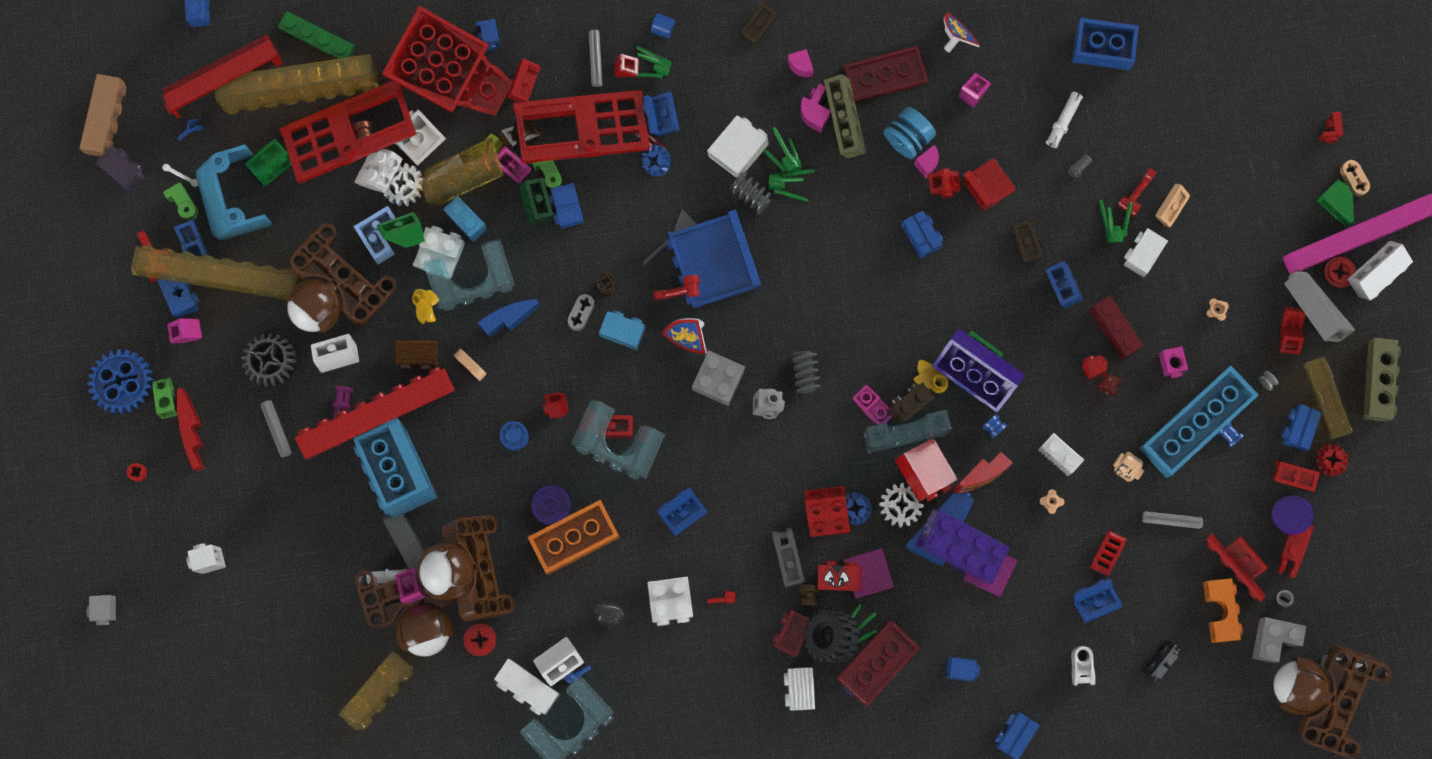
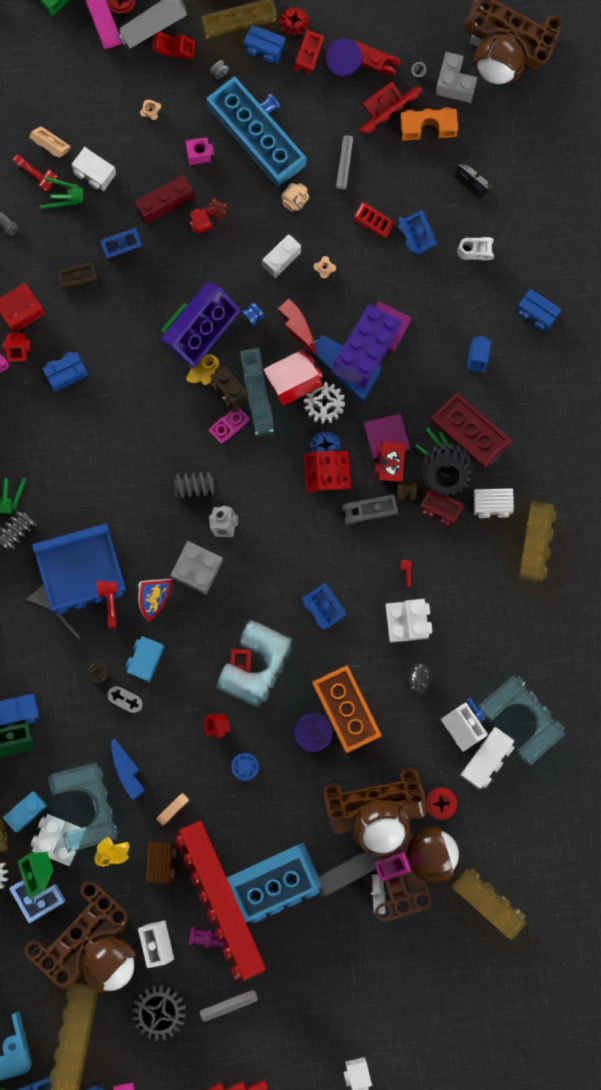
camera: 90 degrees left, 0 degrees up
(759, 736) = (536, 542): none -> clear yellow brick

